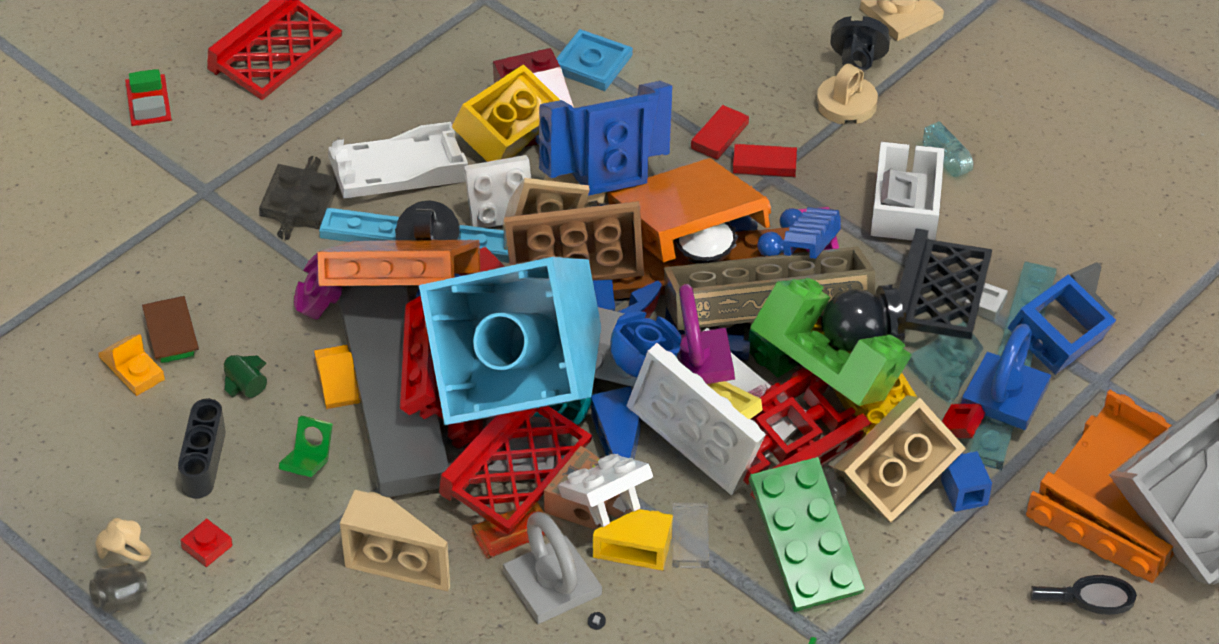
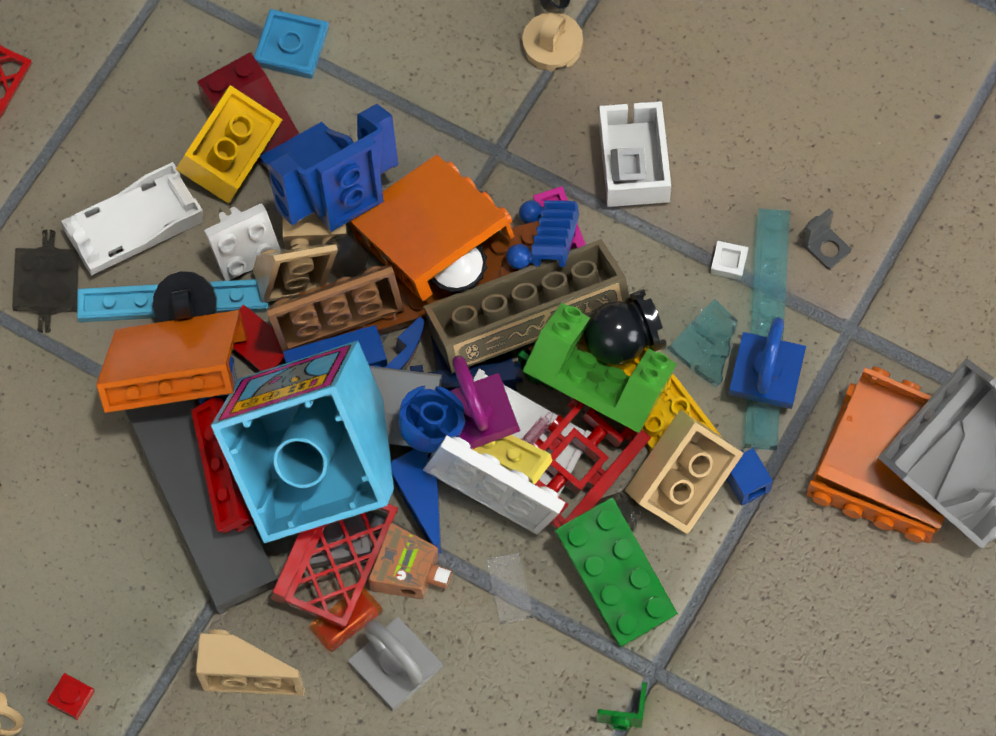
camera: 10 degrees left, 20 degrees up
(201, 448) = (44, 611): black beam -> none
(244, 375) = (53, 506): dark green piece -> none
(306, 457) = (137, 583): green bracket -> none
(310, 297) = (87, 395): magenta plate -> none
(337, 376) = (140, 484): light orange slope -> none
(596, 620) = (445, 697): black piece -> none
(609, 478) = (425, 569): white plate -> none
(635, 539) = (463, 607): yellow slope -> none
(719, 132) = (437, 109): red tile -> none
(765, 160) = (488, 135): red tile -> none
(916, 283) = (660, 254): black fence -> none
(956, 157) = (663, 88): clear light blue piece -> none
(963, 419) = (732, 411): red plate -> none
(1056, 350) = (792, 305): blue window -> none
(1092, 593) = (881, 571): black piece -> none

